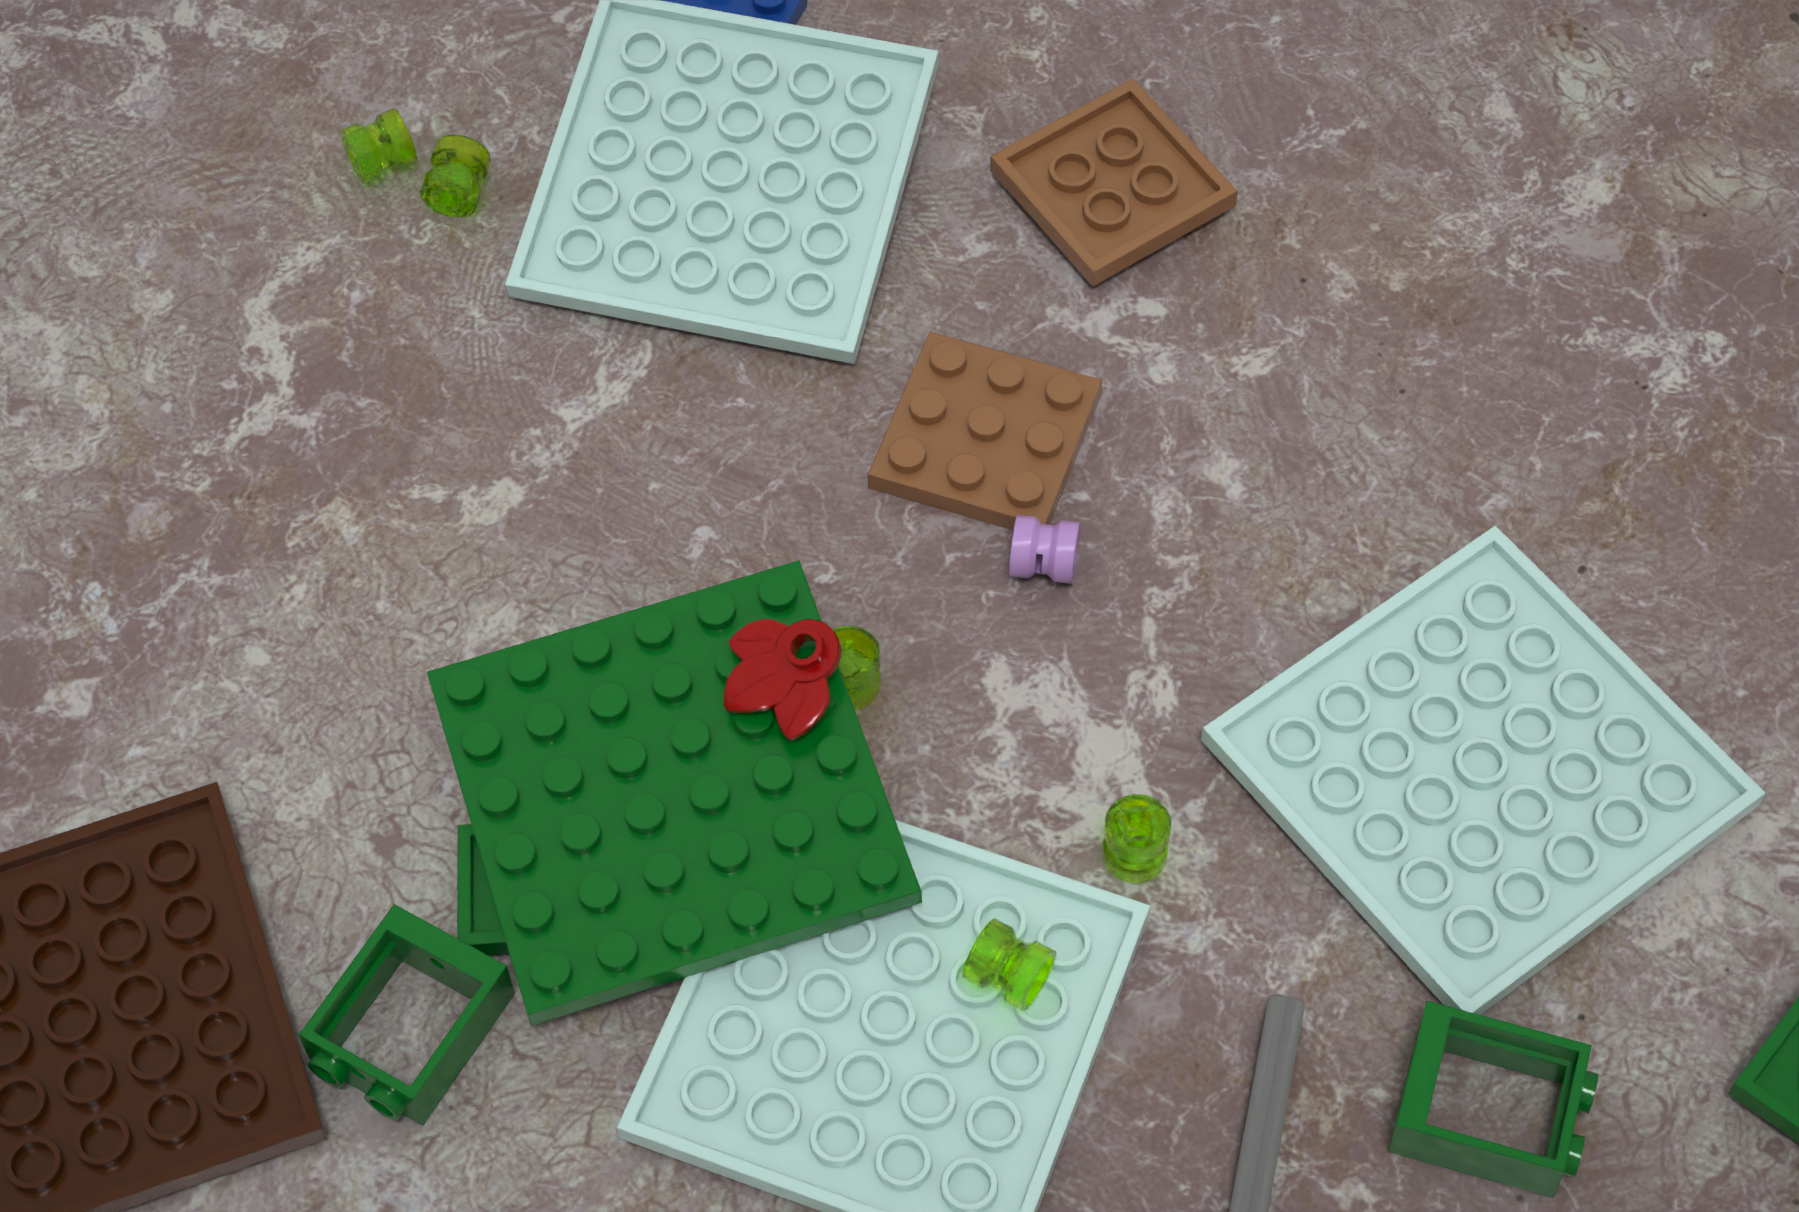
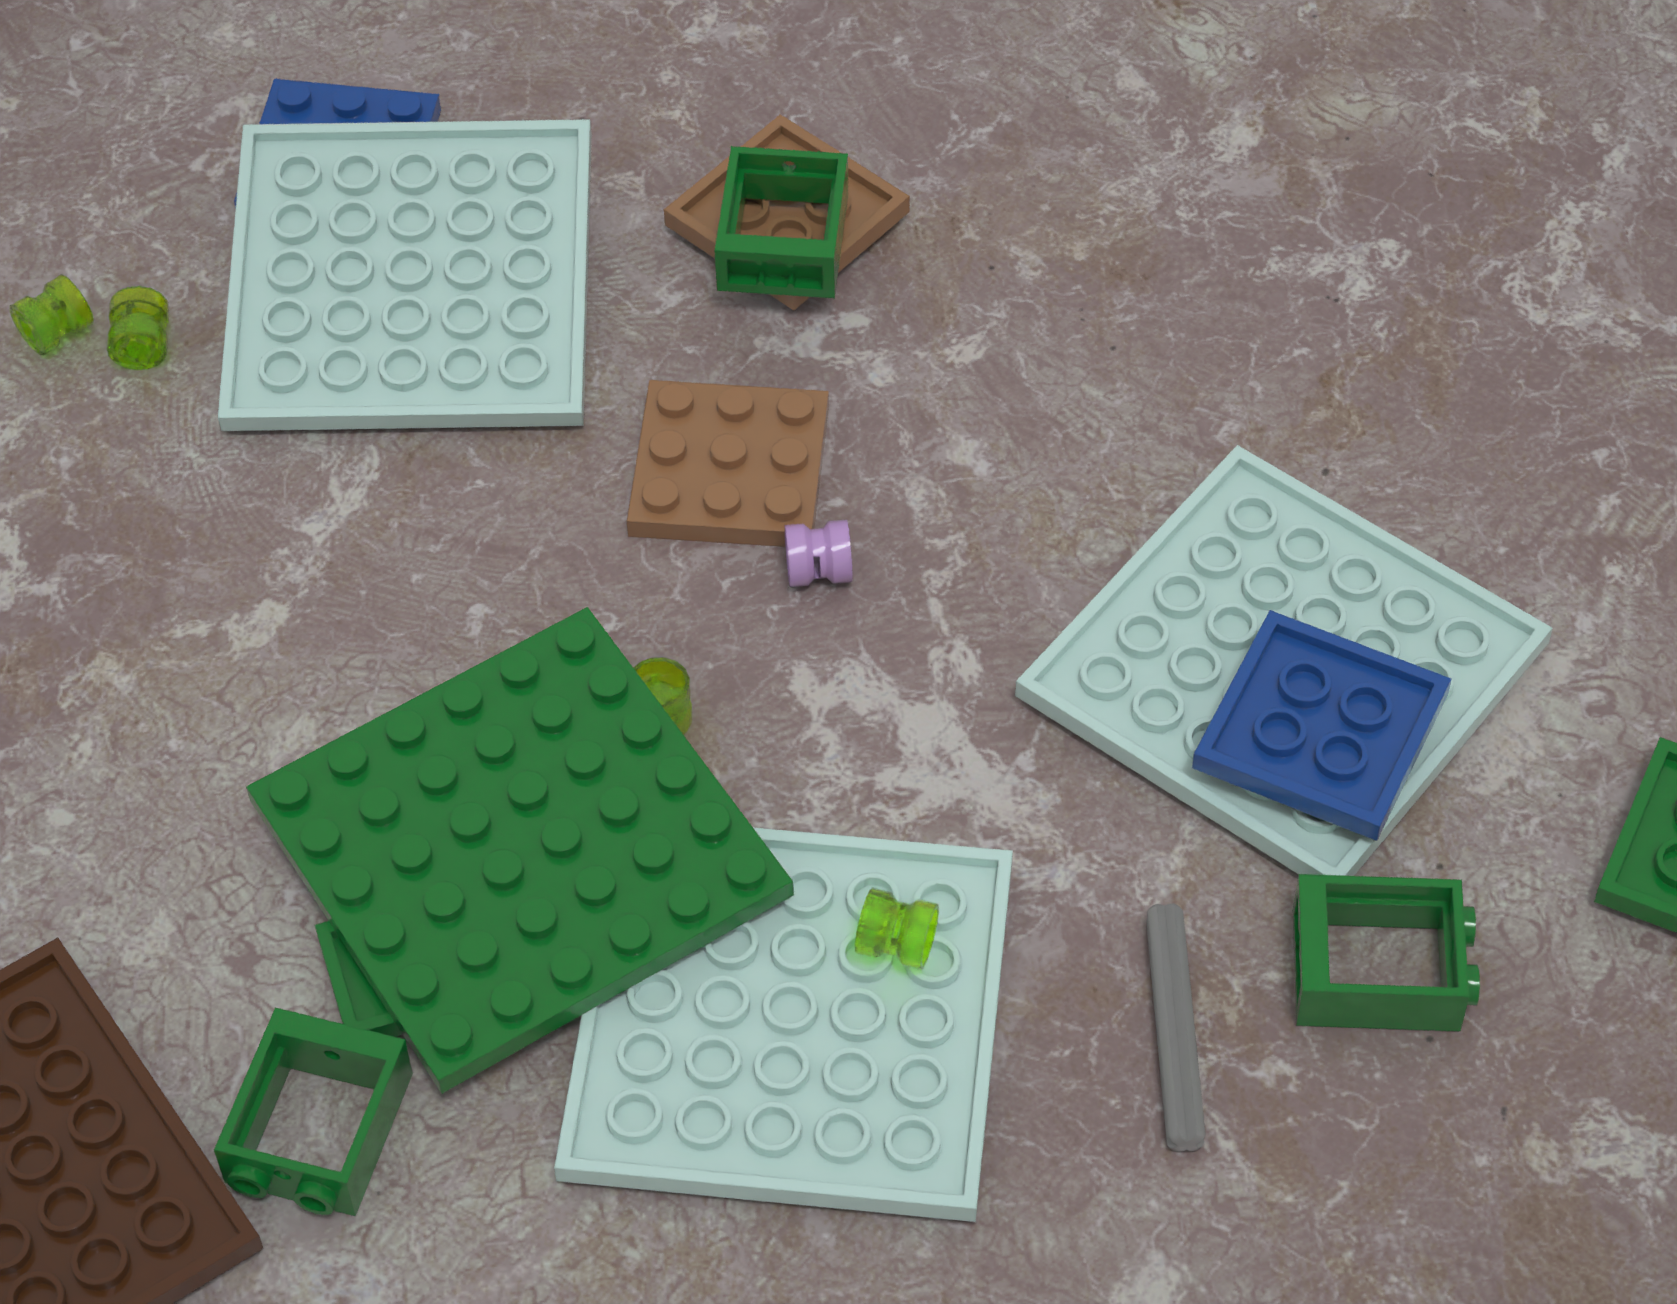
camera: 15 degrees left, 5 degrees down
(775, 676) = (598, 713): red plate -> none
(1088, 240) = (781, 263): none -> green window
(1140, 853) = (981, 794): clear neon green wheel -> none
(1496, 846) = (1322, 724): none -> blue plate

